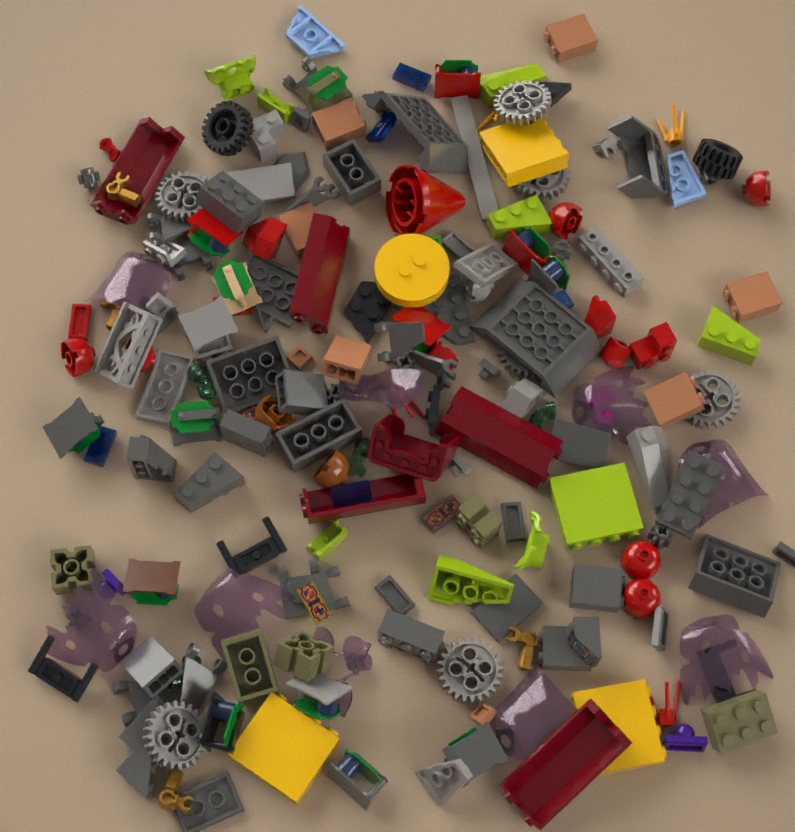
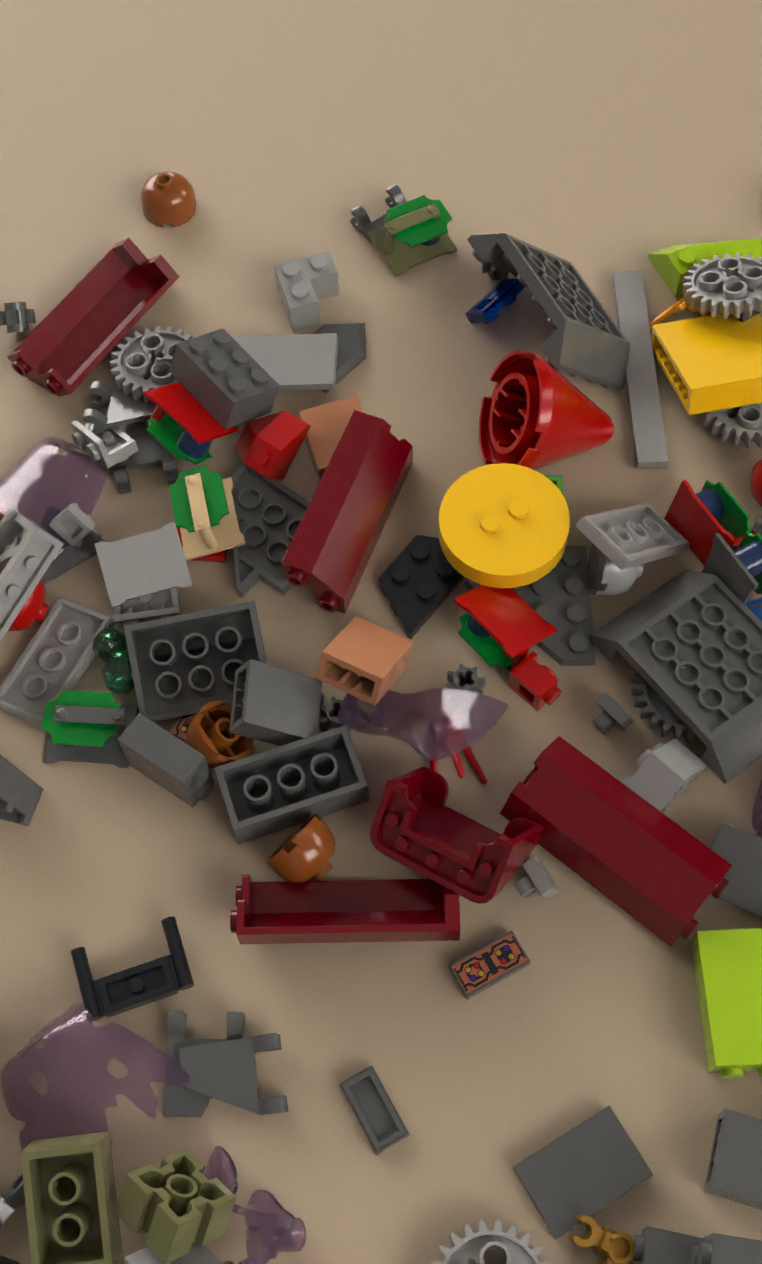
camera: 15 degrees right, 5 degrees down
(106, 144) = (58, 274): red piece -> none
(116, 191) = (53, 342): pearl gold bar -> none
(164, 84) = (168, 199): none -> dark orange cylinder
(210, 481) = (82, 838): dark grey wedge -> none
(227, 128) = (247, 270): black wheel -> none
(235, 82) = (274, 208): lime piece -> none
(269, 103) = (323, 241): lime hinge -> none
(299, 357) = (289, 645): nougat tile -> none
(301, 118) = (368, 272): dark grey tile -> none
(312, 36) = (410, 158): light blue wing -> none
(314, 195) = (363, 387): dark grey flag -> none
(314, 602) = (220, 1097): tile -> none
(327, 541) = (270, 980): lime hinge -> none
(339, 124) = (426, 287): nougat brick -> none
(351, 493) = (328, 899): clear blue plate -> none
(352, 172) = (433, 361): dark grey brick -> none
(355, 462) = (348, 841): clear green arm -> none
(402, 337) = (468, 635): dark grey flag -> none
(410, 636) = (385, 1201): dark grey brick -> none
(411, 77) = (555, 234): clear blue plate -> none
(433, 364) = (519, 694): dark grey flag -> none
(433, 397) = (507, 750): black plate -> none
(457, 79) = (628, 243): red piece -> none
(457, 245) = (587, 497): light grey tile -> none
(463, 583) = (506, 1108): lime wedge -> none
(478, 521) = (552, 992): olive brick -> none
(513, 522) = (617, 1002): dark grey tile -> none
(515, 216) = (710, 459): lime wedge -> none
(535, 547) = (653, 1060): lime piece -> none
(548, 411) = (709, 805): clear green arm -> none

